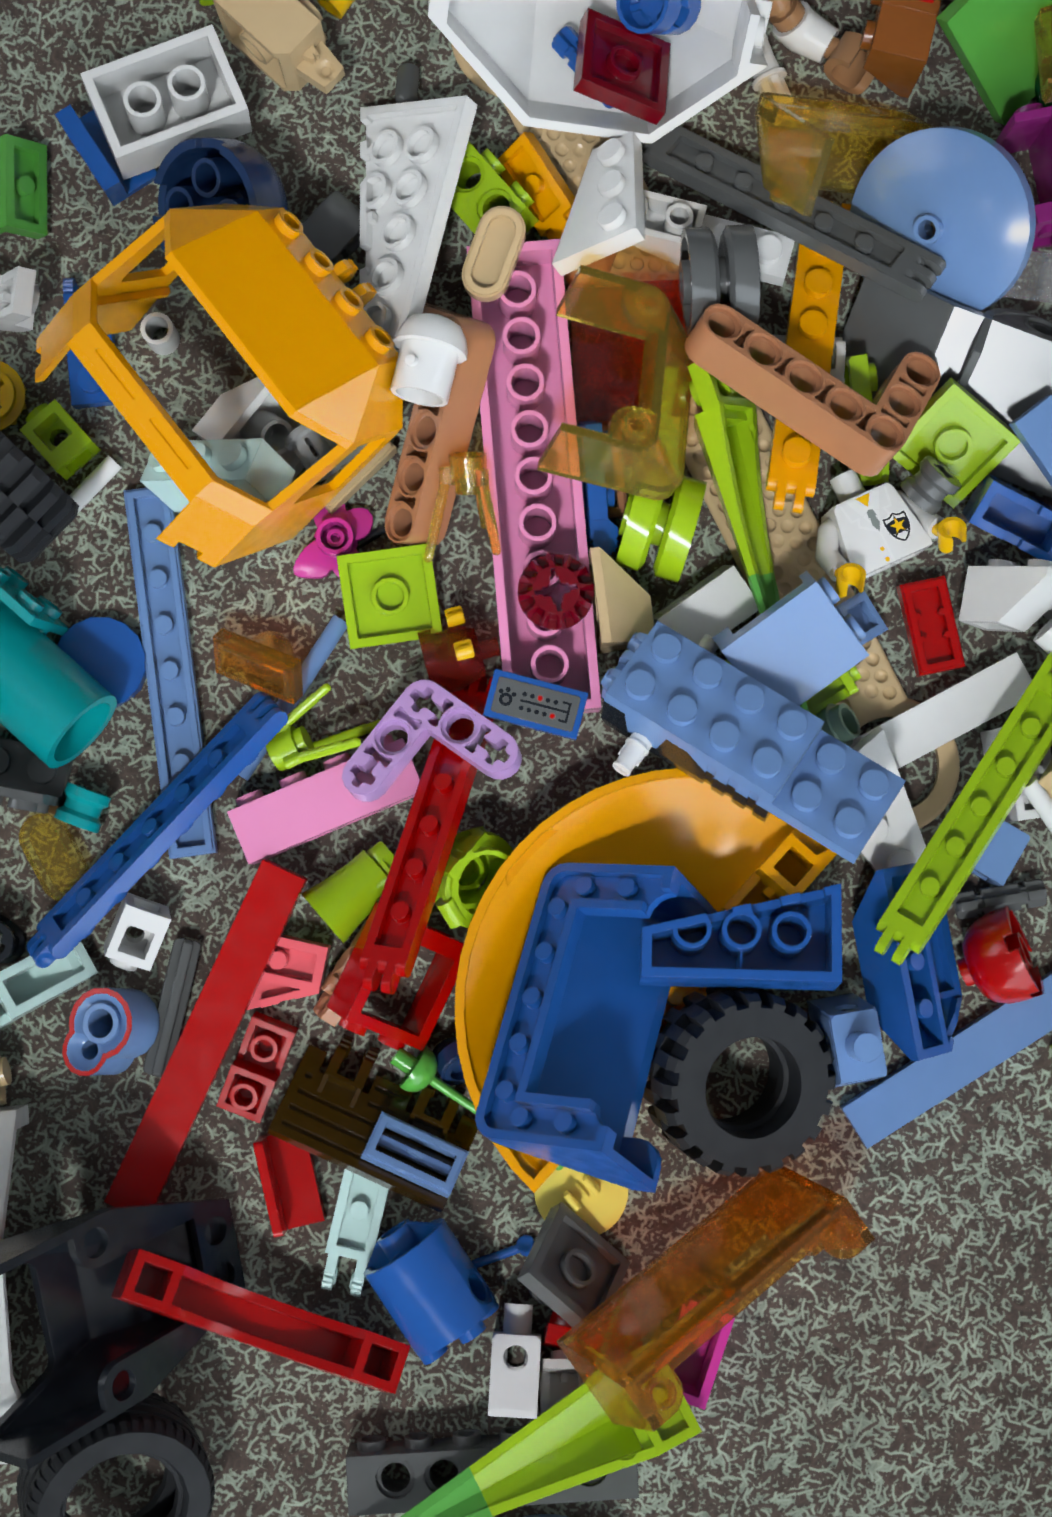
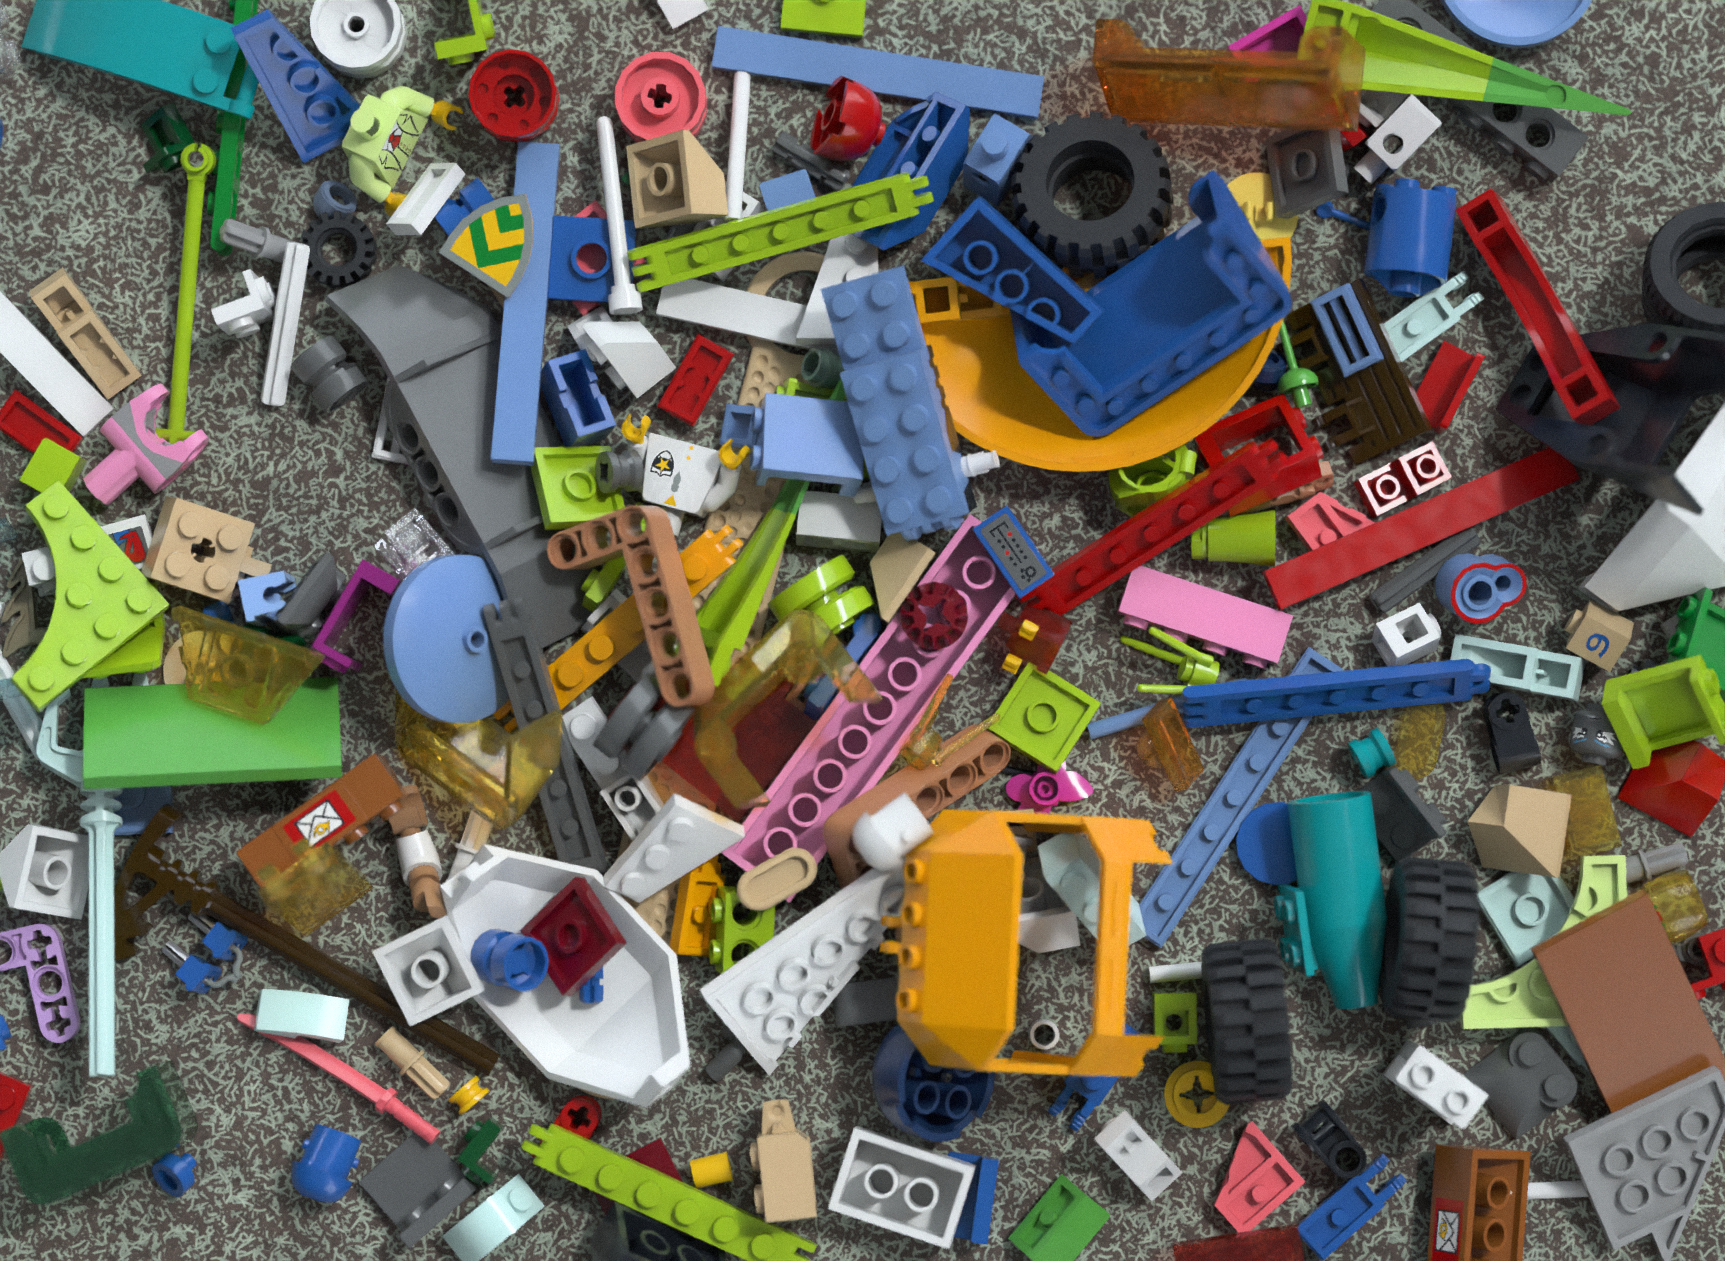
camera: 135 degrees left, 0 degrees up
(419, 727) = (1102, 605): lavender beam -> none

